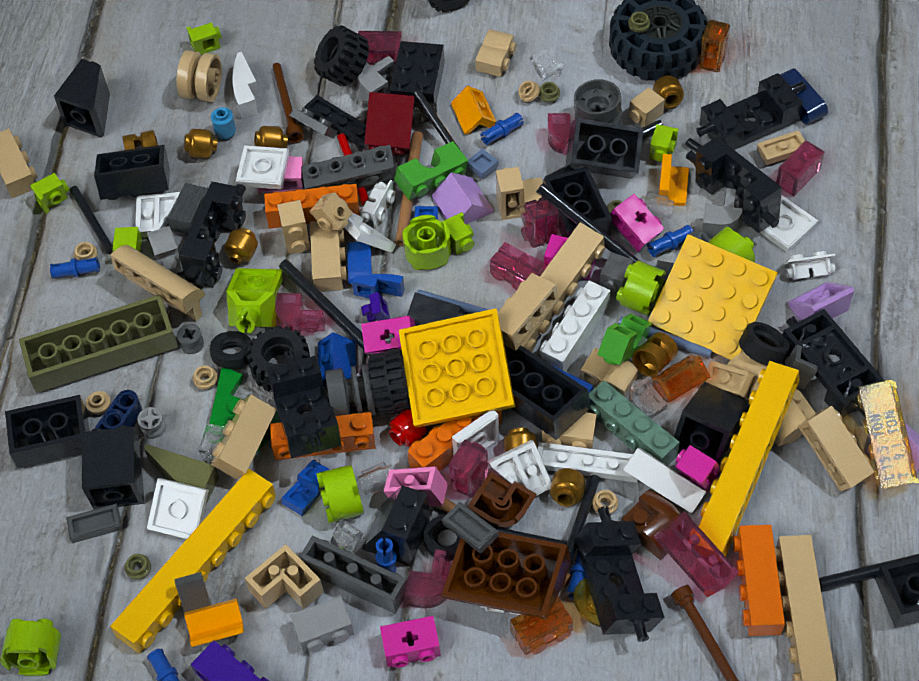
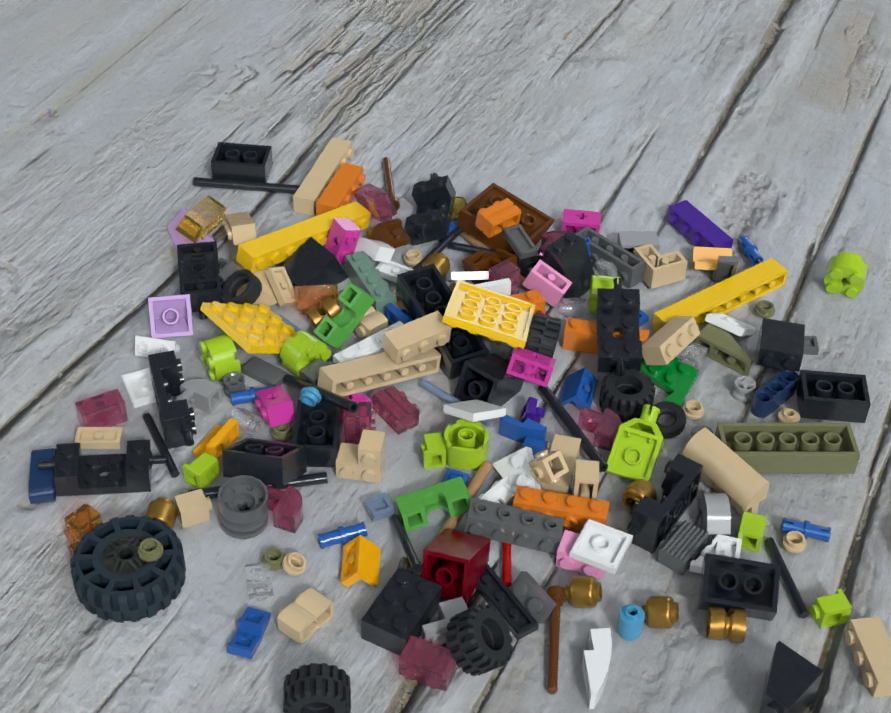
camera: 165 degrees left, 15 degrees down
(199, 76) = (647, 675): tan wheel -> none
(349, 392) = (575, 349): dark grey wheel -> none
(430, 270) = (474, 410): none -> white tile
(462, 195) = (411, 475): lavender slope -> none
(509, 538) = (498, 216): none -> orange brick
(533, 32) = (249, 633): none -> blue slope
(597, 211) = (310, 396): none -> dark azure plate

